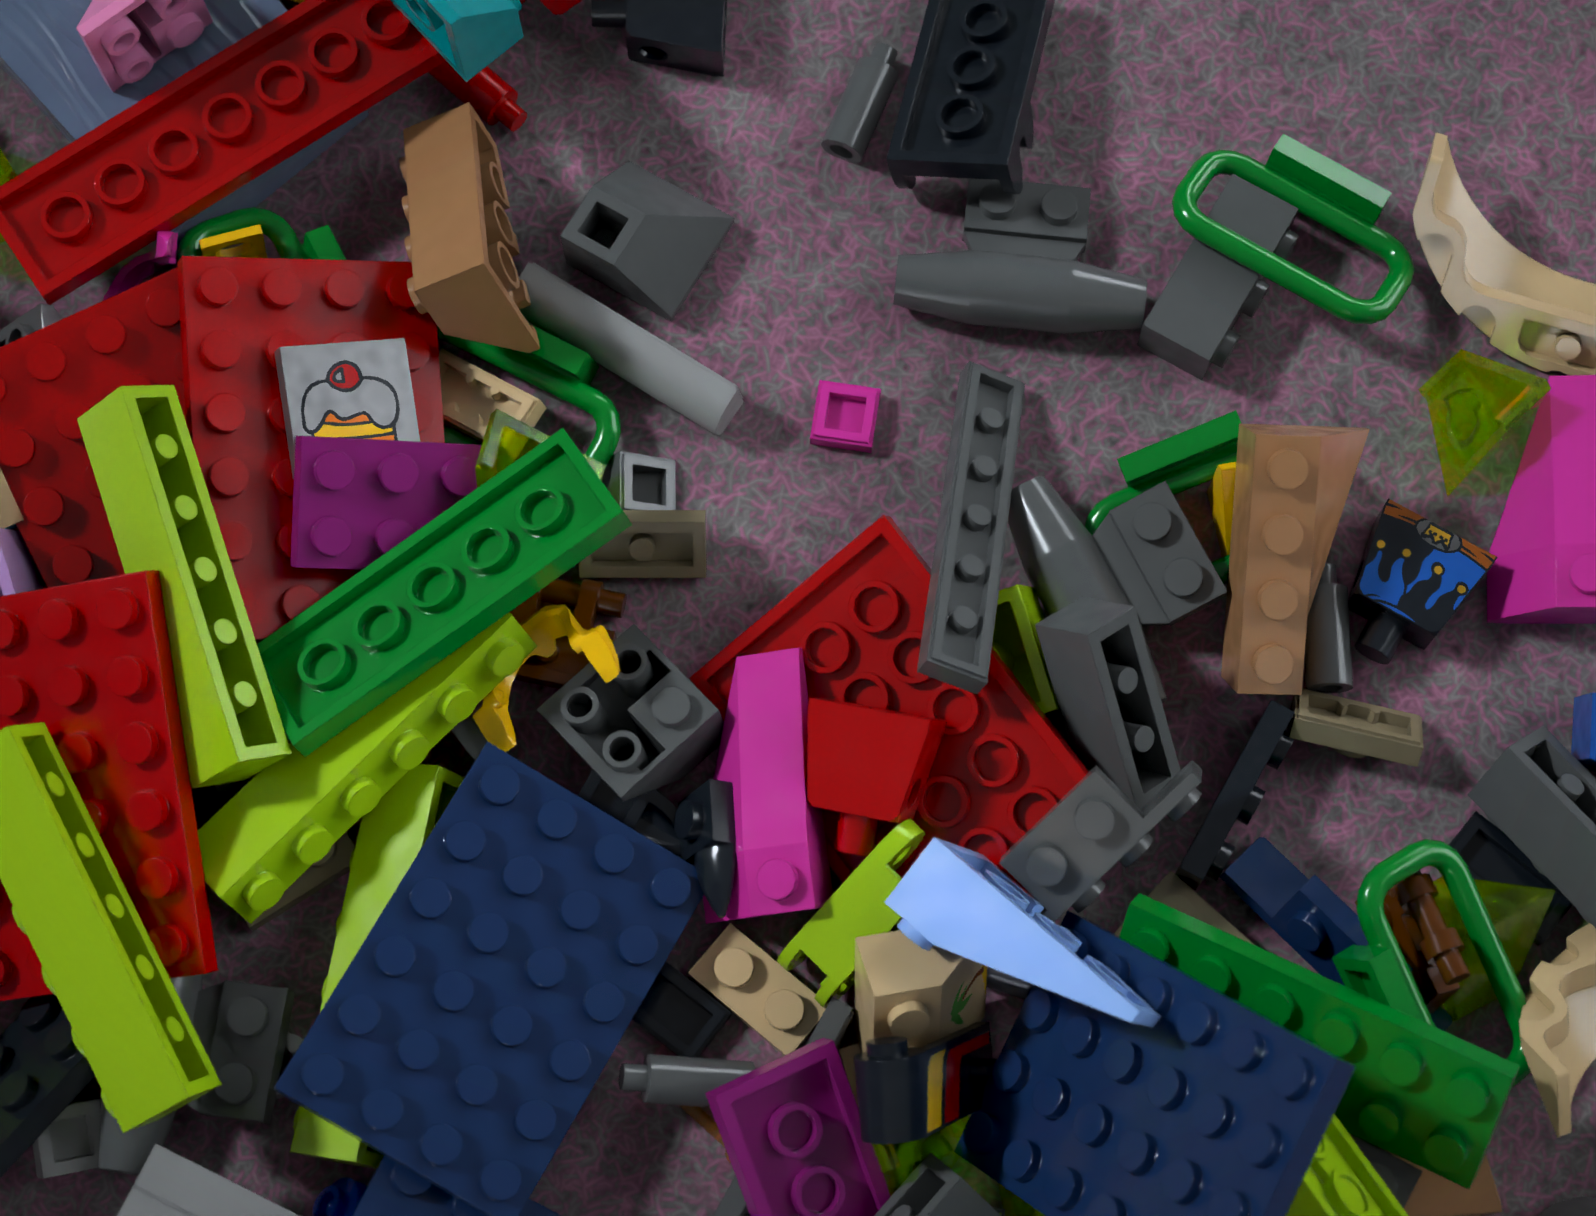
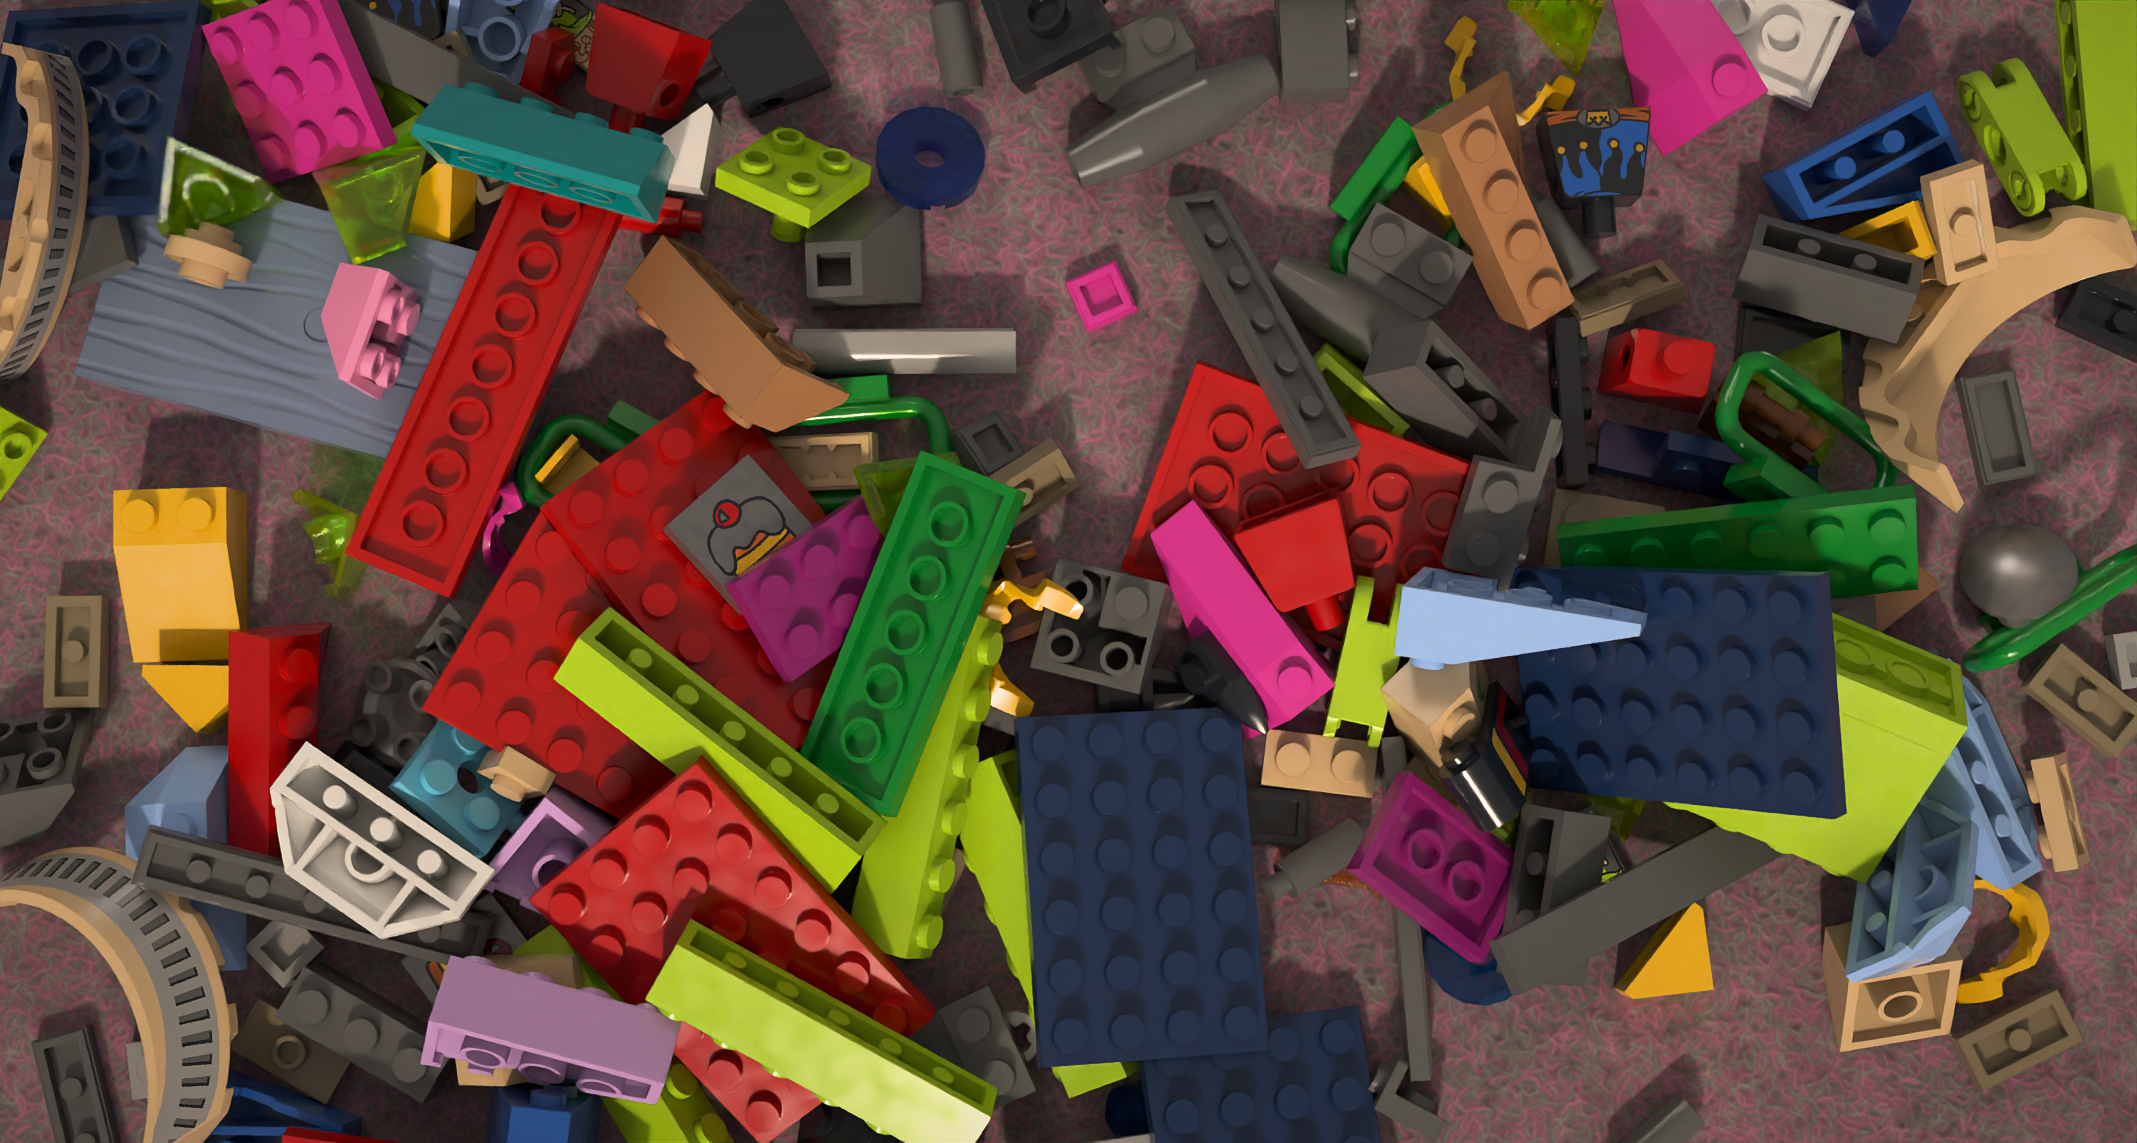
camera: 35 degrees left, 10 degrees up
(547, 53) = (694, 148): none -> white slope
(623, 126) = (793, 179): none -> lime plate
(777, 162) = (934, 131): none -> clear blue tile
(1347, 816) = (1660, 369): none -> red torso
(1352, 390) = (1462, 42): none -> yellow helmet

